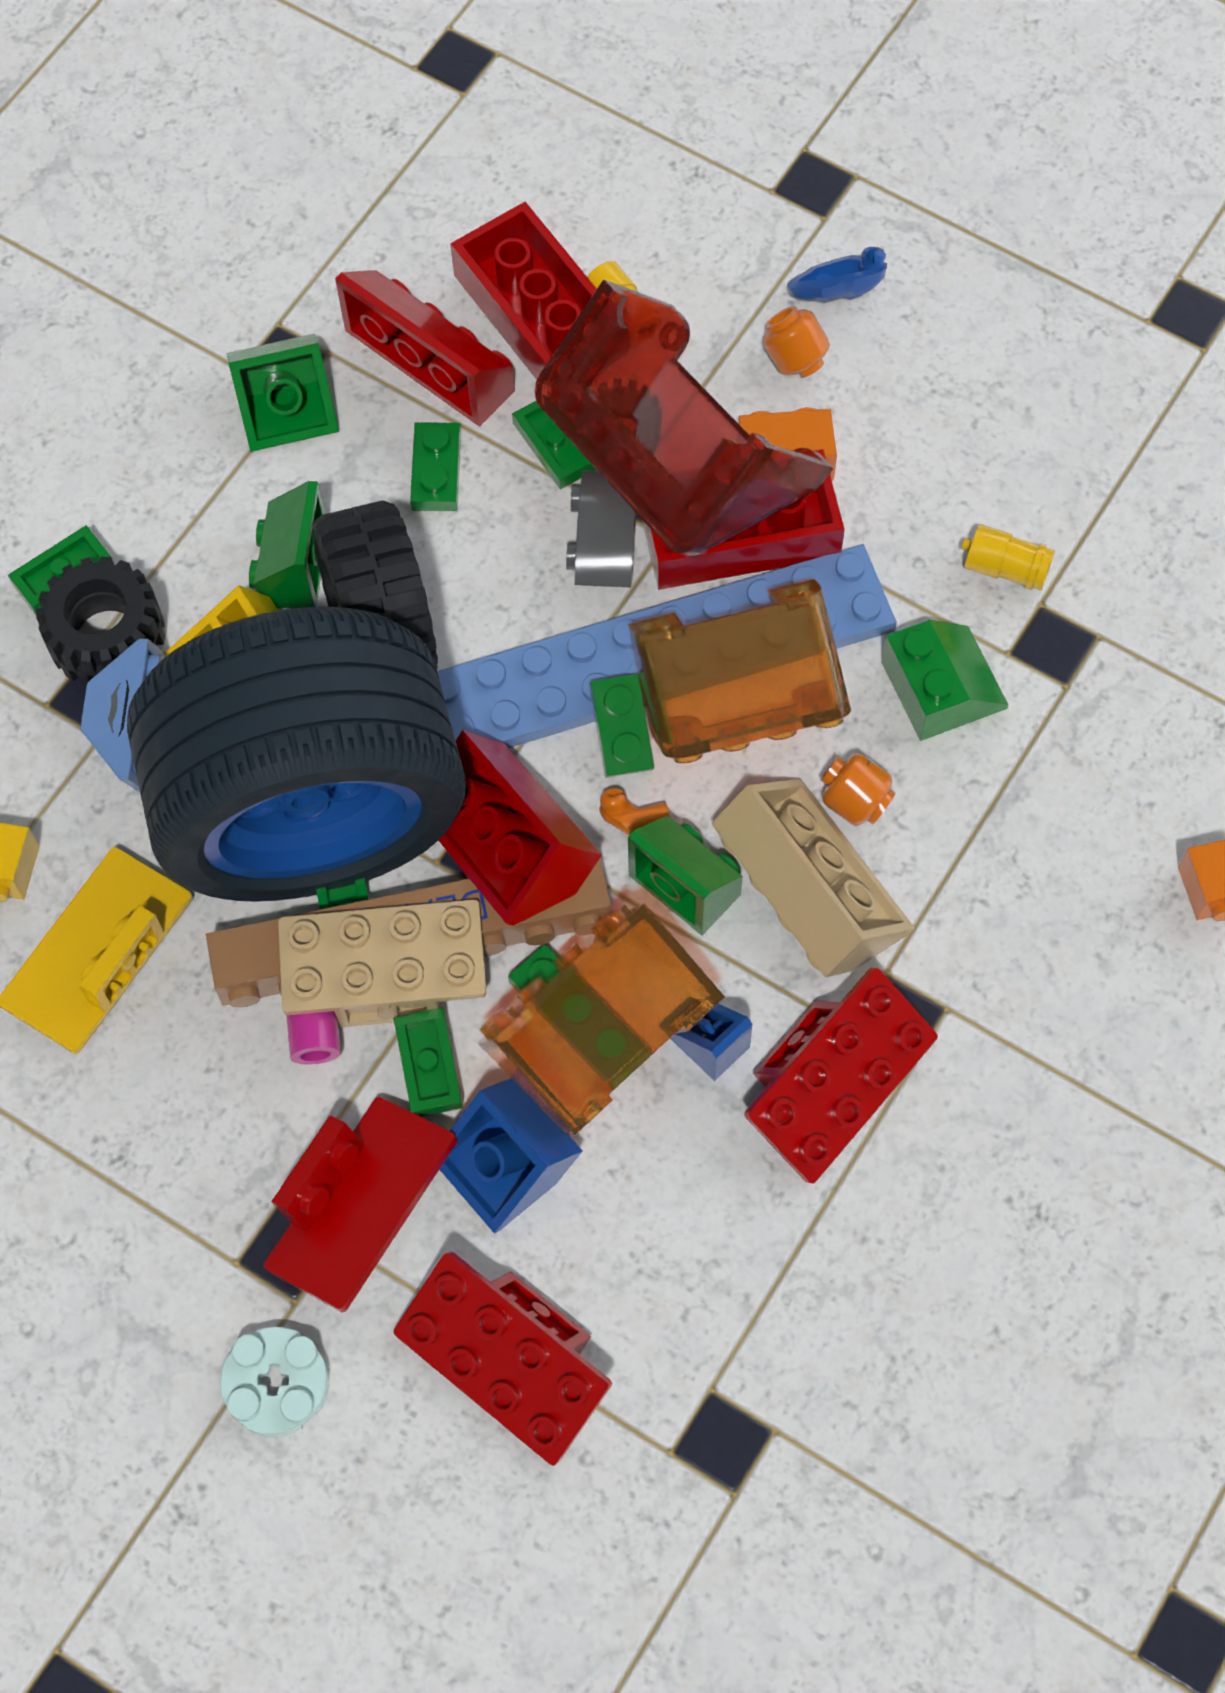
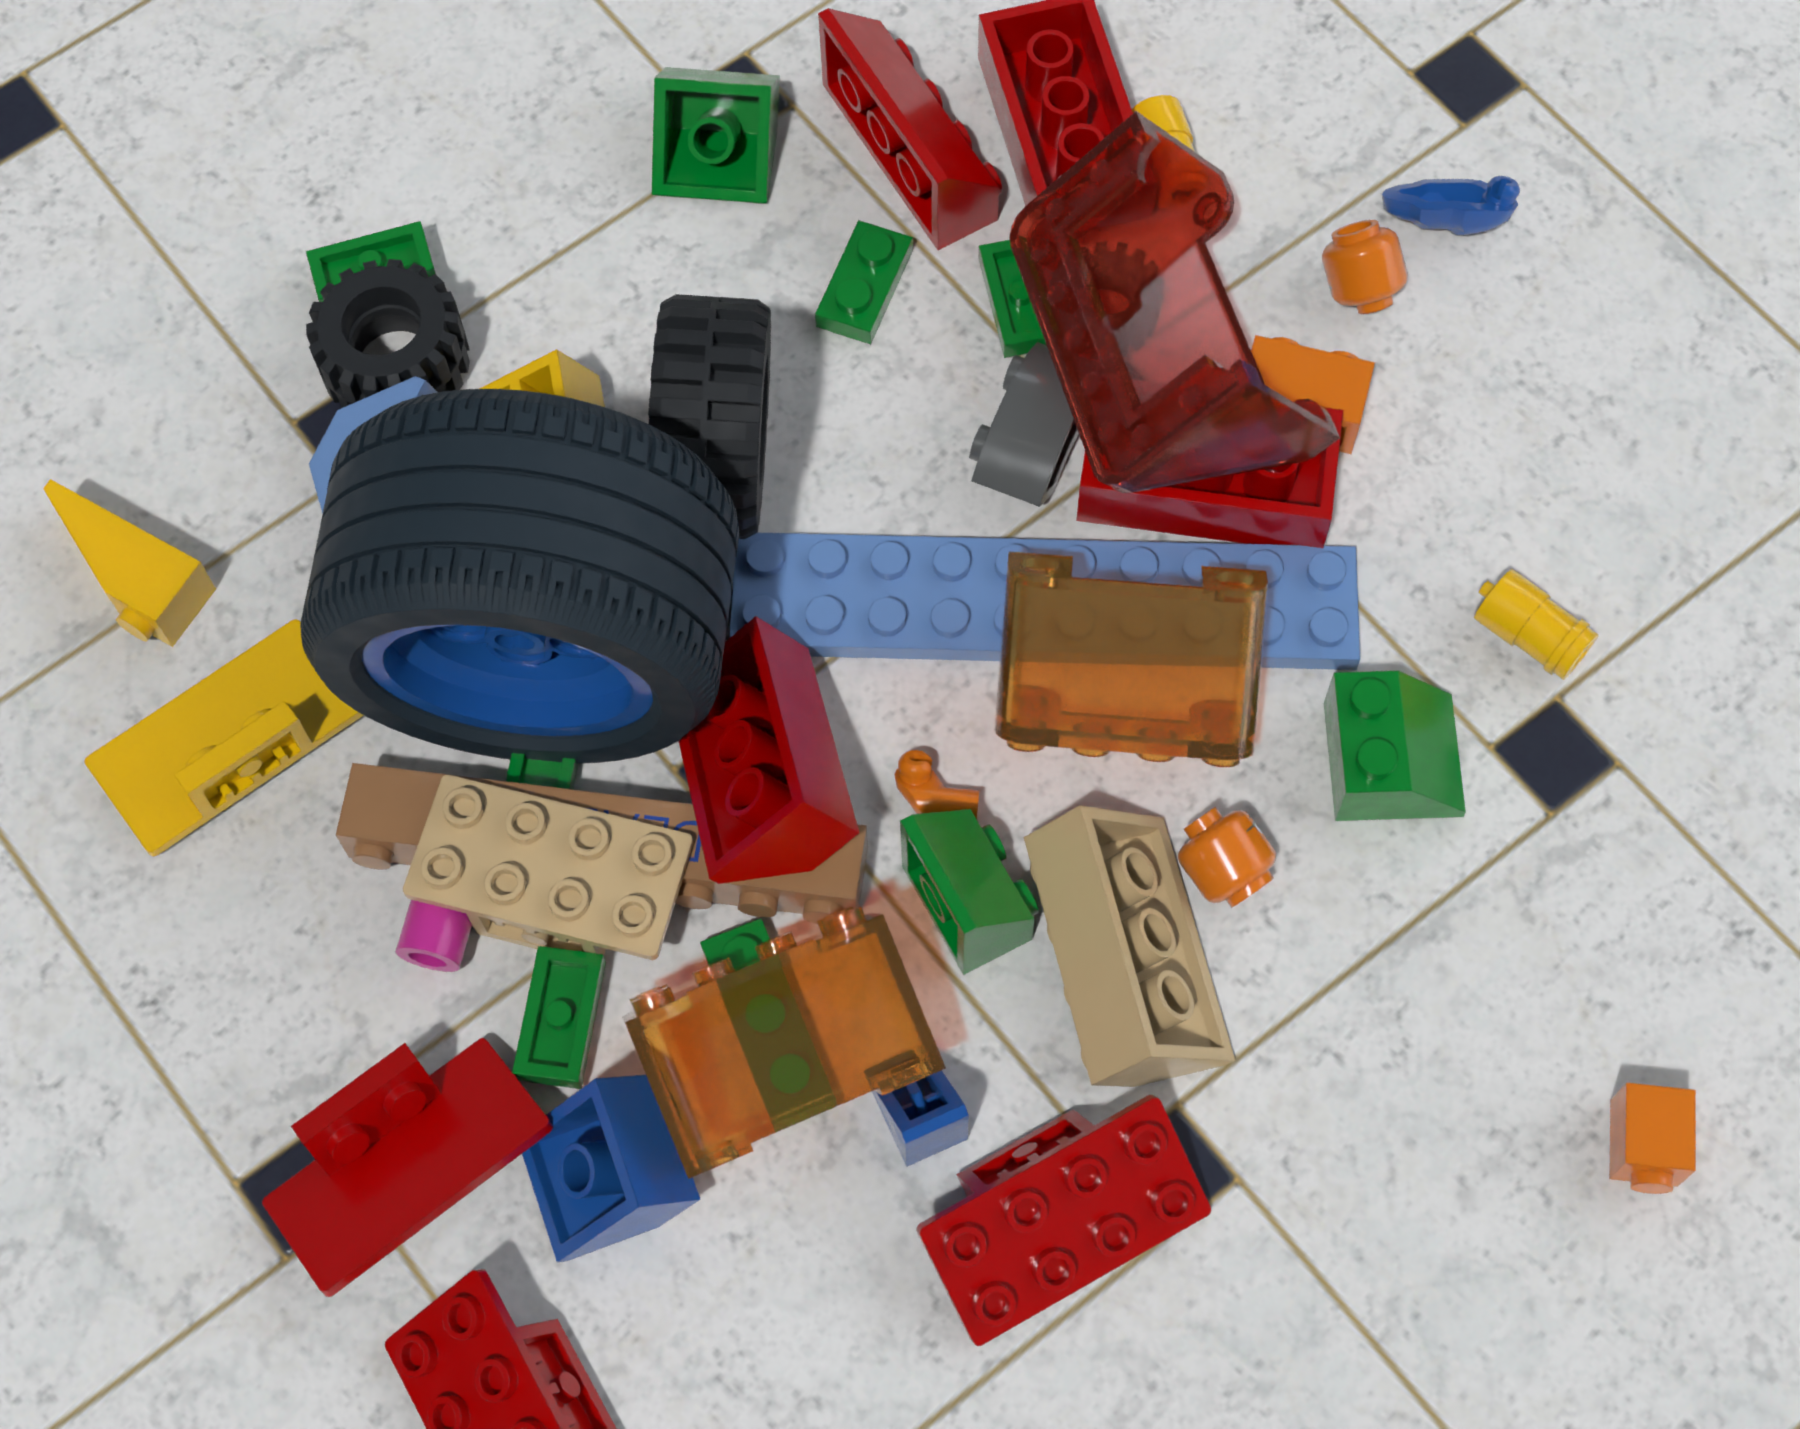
camera: 20 degrees right, 0 degrees up
(287, 555) = (624, 341): green slope -> none
(294, 1404) = (230, 1389): light aqua plate -> none
(621, 725) = (961, 675): green plate -> none

